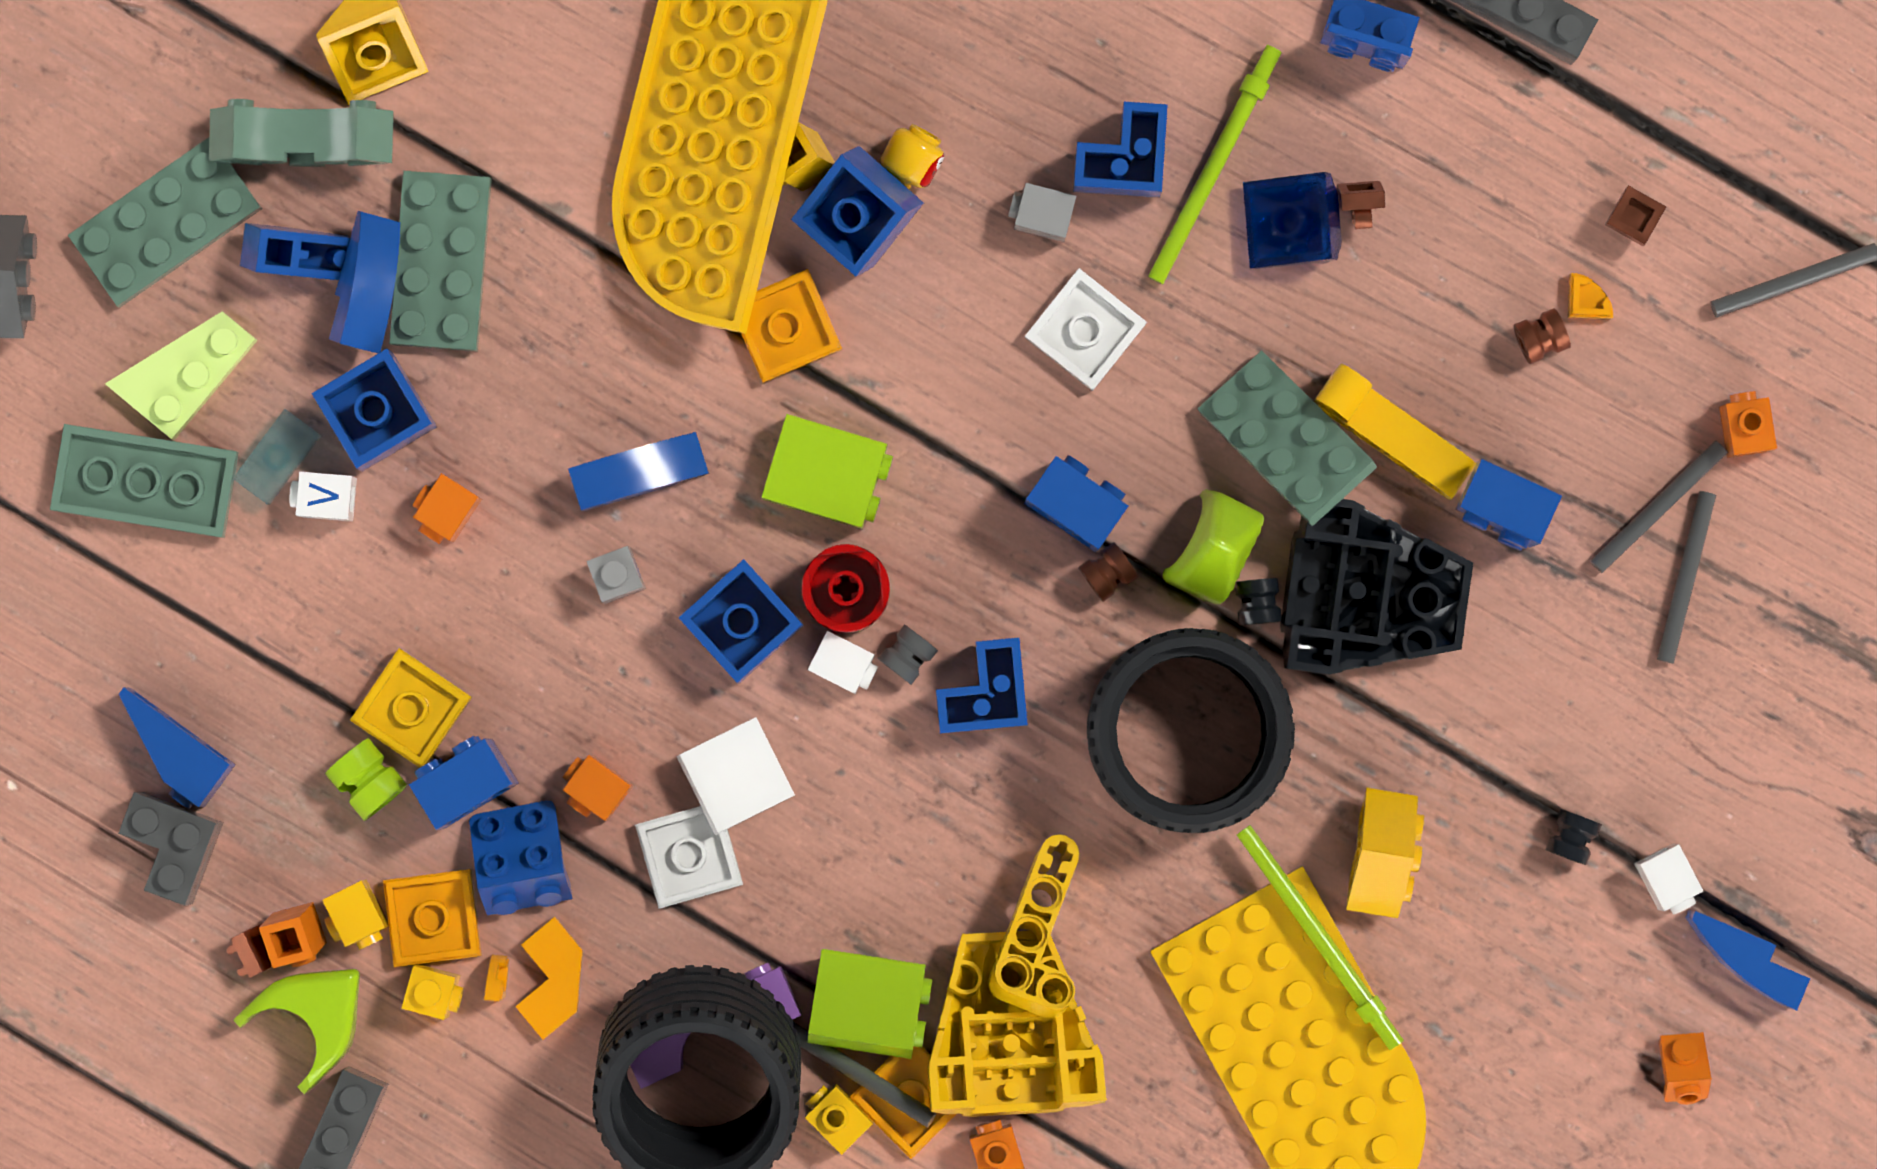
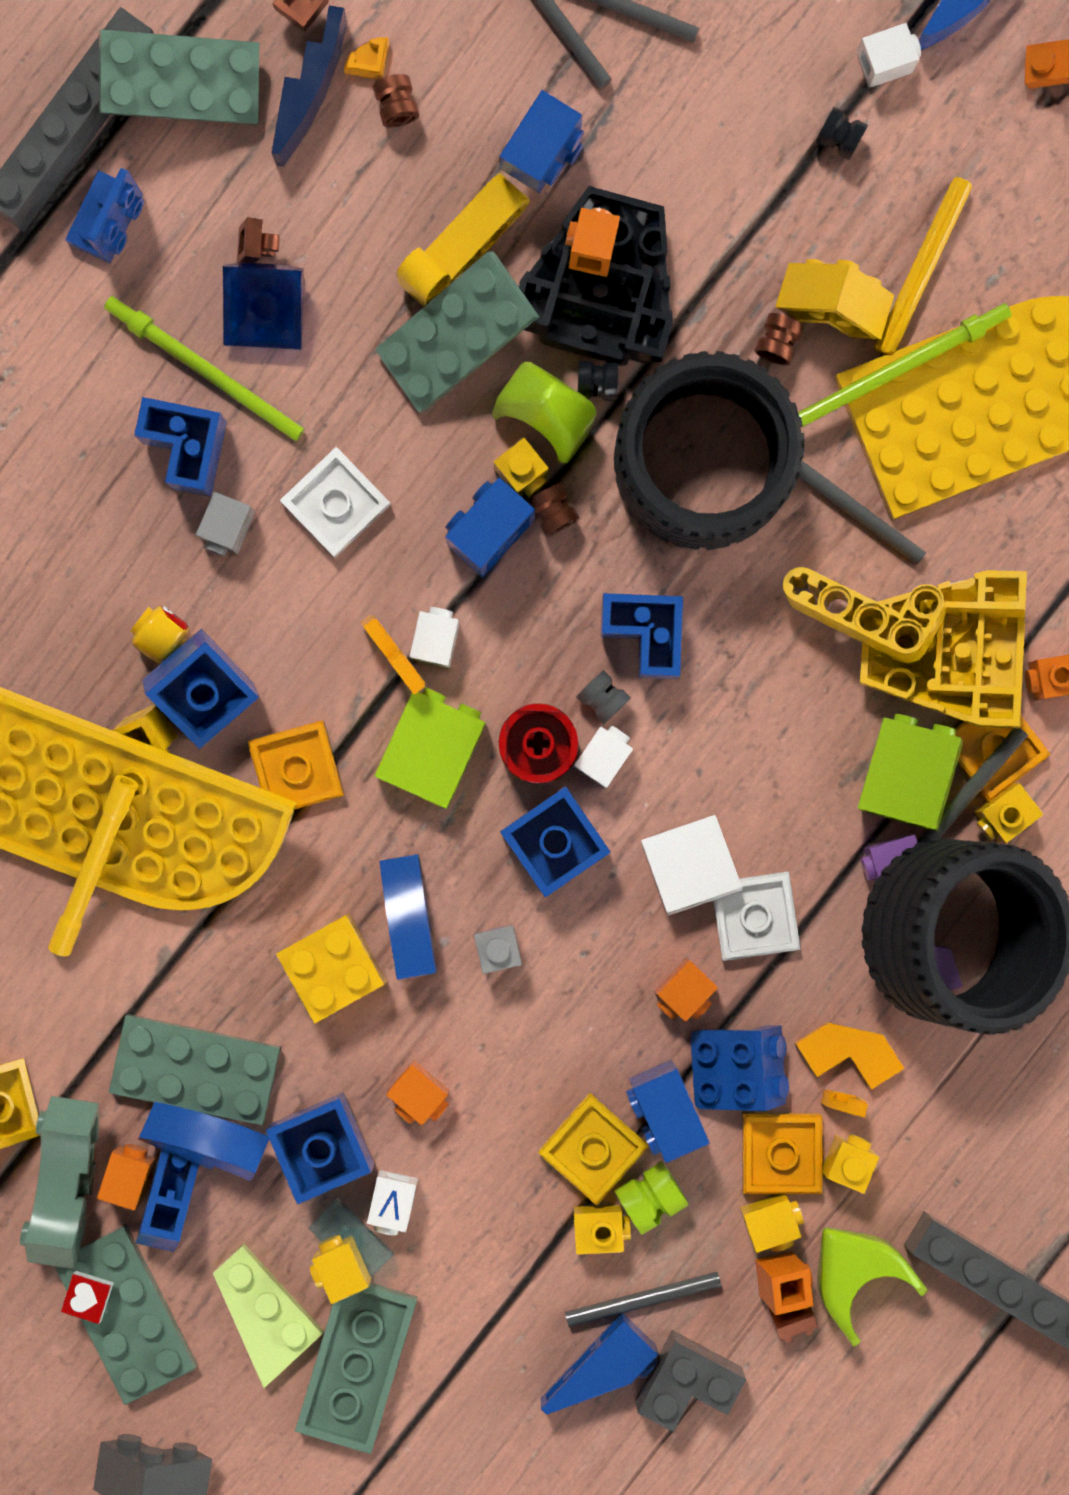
camera: 85 degrees left, 0 degrees up
(180, 179) = (87, 1297): none -> tile
(247, 448) = (339, 1268): none -> yellow brick
(253, 785) = (643, 1299): none -> dark grey bar
(316, 204) = (127, 1176): none -> orange brick
(324, 727) = (600, 1229): none -> yellow brick
(571, 396) = (332, 968): none -> yellow brick
(711, 138) = (114, 811): none -> yellow piece
(925, 416) = (393, 654): none -> light orange tile
(949, 460) = (435, 637): none -> white brick
(1147, 531) = (522, 469): none -> yellow brick
(1153, 912) = (861, 513): none -> dark grey bar
(1333, 797) = (779, 339): none -> copper wheel
(1406, 574) = (592, 240): none -> orange brick
(1438, 948) = (923, 265): none -> yellow axle
(1529, 94) = (178, 77): none -> sand green plate
(1529, 232) = (304, 96): none -> dark blue slope

